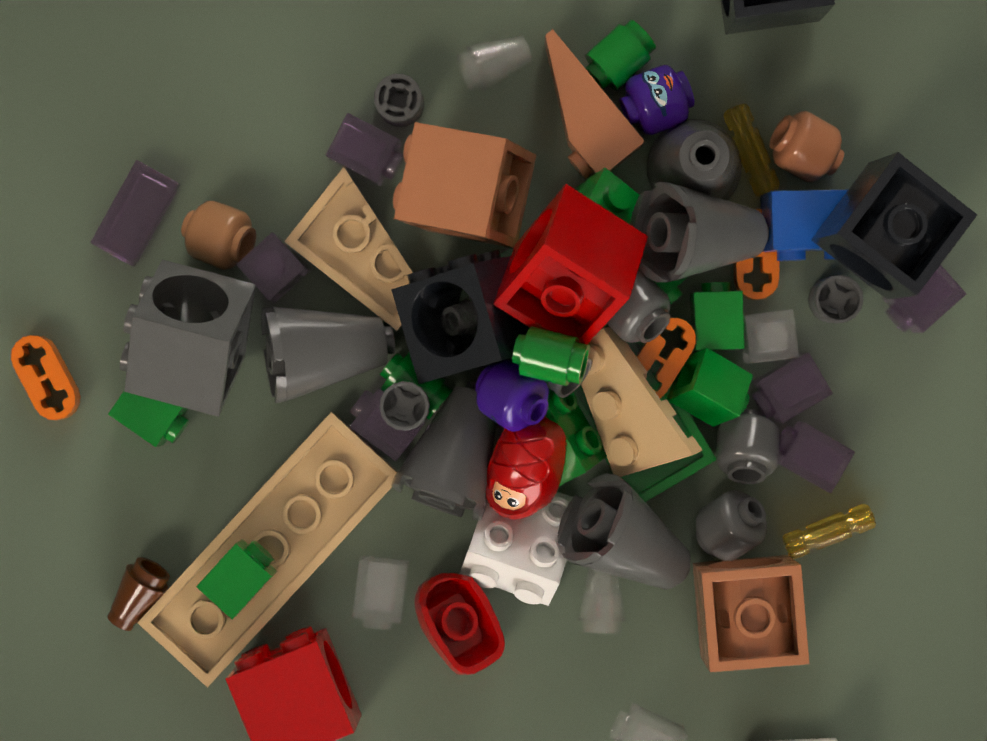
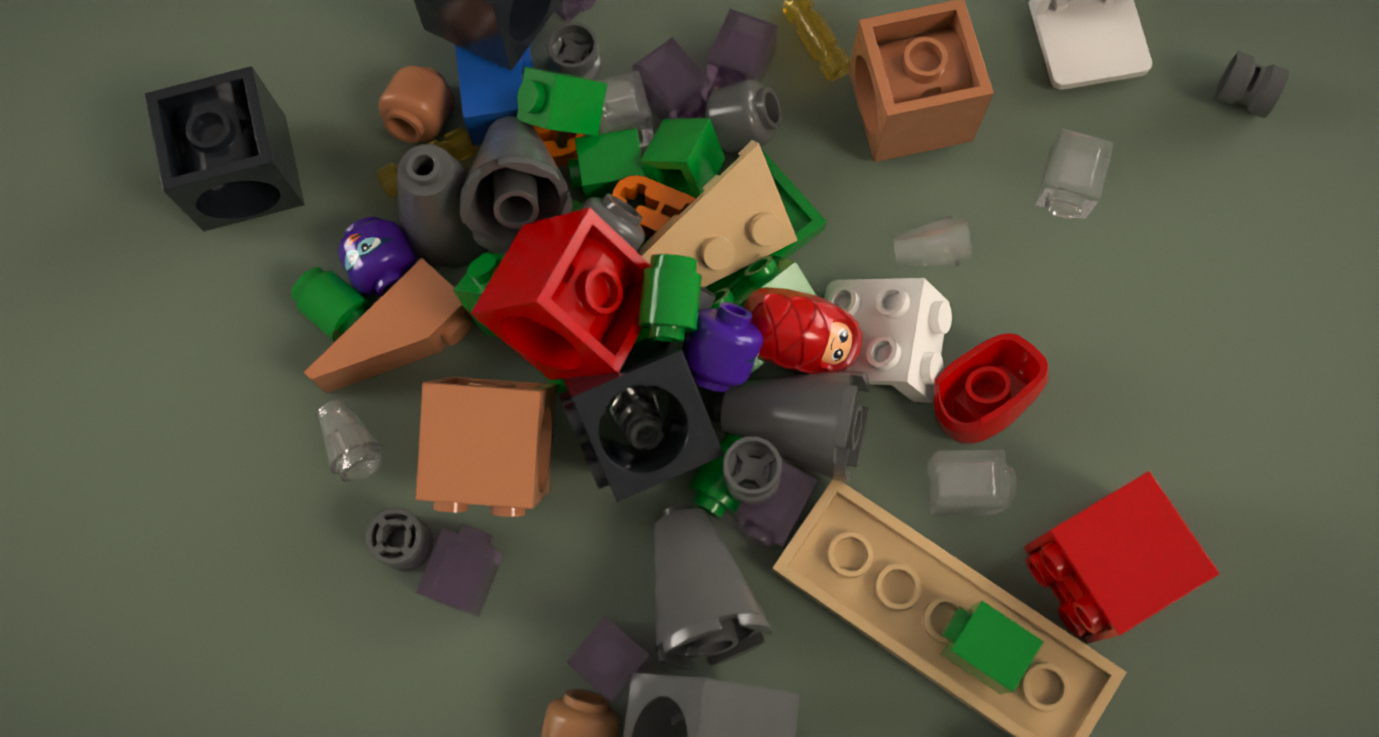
camera: 95 degrees left, 15 degrees down
(352, 247) = (581, 568): tan wing -> none
(621, 536) = (856, 227): dark grey cone -> none
(731, 525) = (827, 121): dark grey head -> none
(772, 283) = (561, 101): none -> green brick

